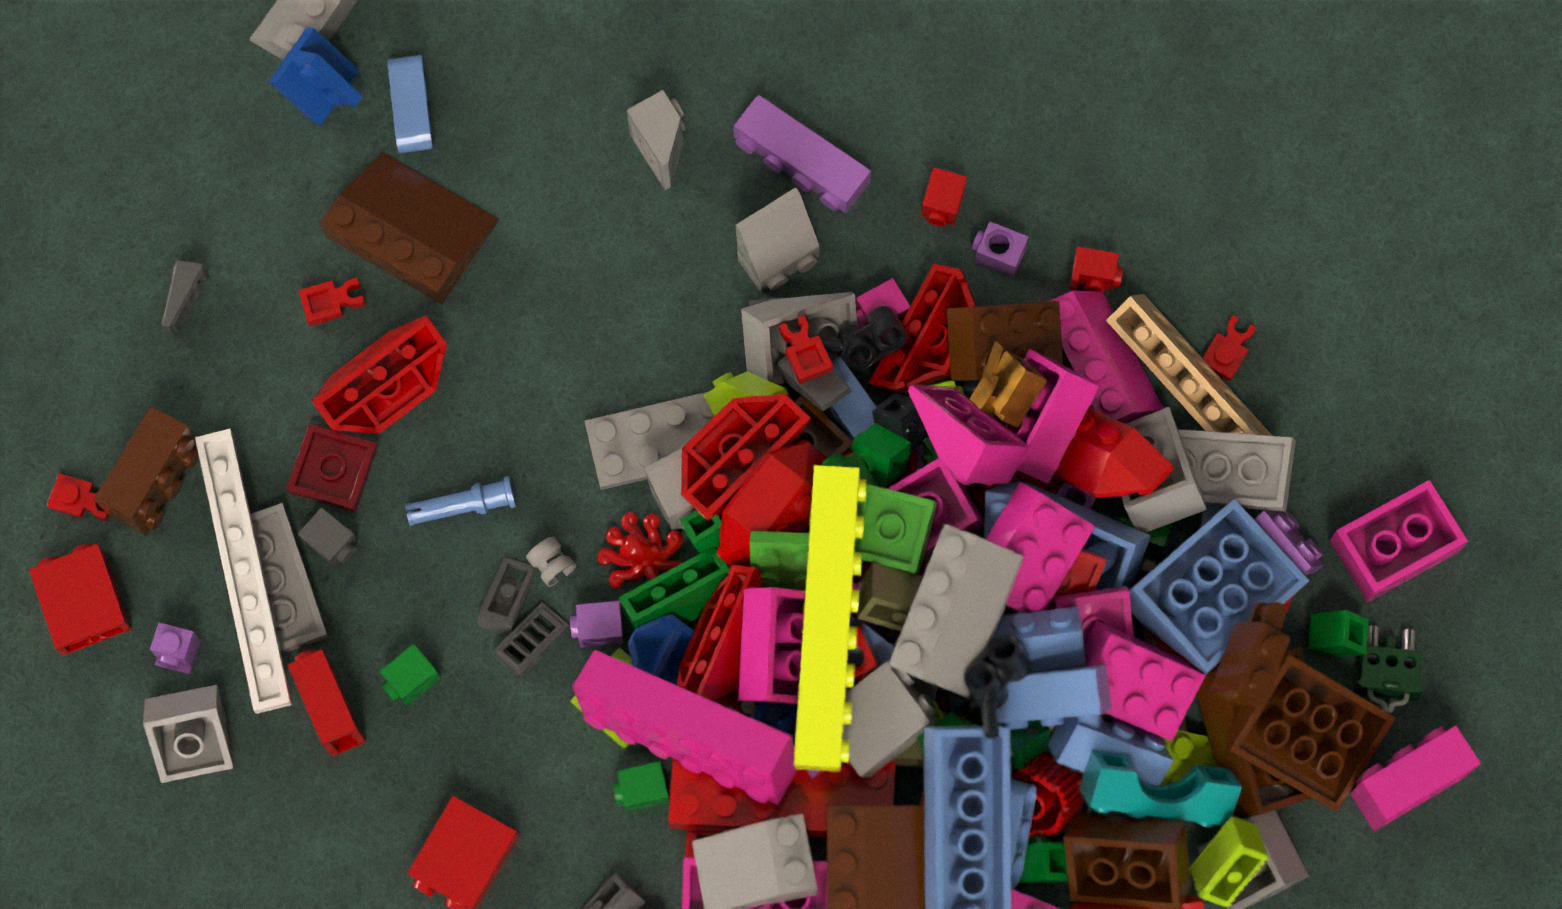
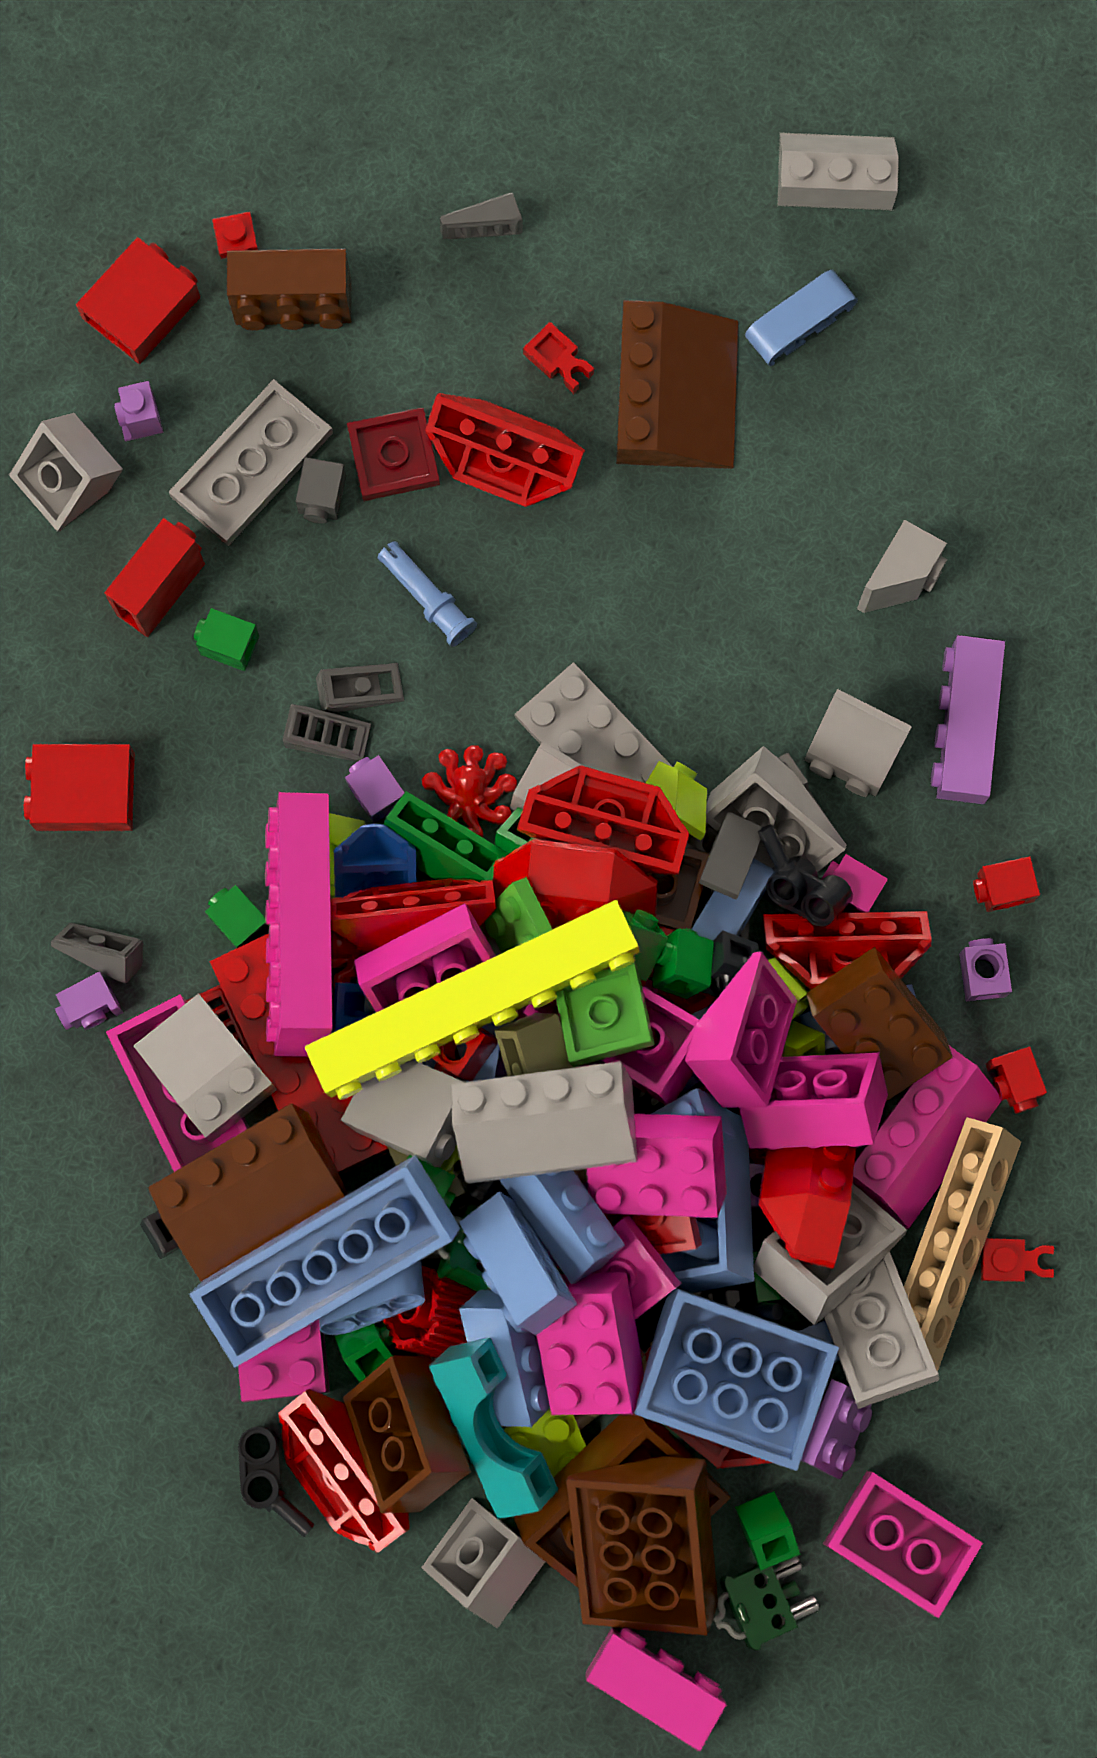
camera: 60 degrees right, 5 degrees up
(243, 571) = (242, 427): white plate -> none
(316, 77) = (772, 212): blue bracket -> none
(550, 560) = (413, 708): light grey wheel -> none
(806, 354) = (747, 834): red plate -> none
(988, 677) = (505, 1199): black beam -> none
(1007, 386) = (822, 1052): pearl gold piece -> none
(1229, 862) = (460, 1538): lime brick -> none
(1253, 657) = (675, 1452): reddish brown brick -> none

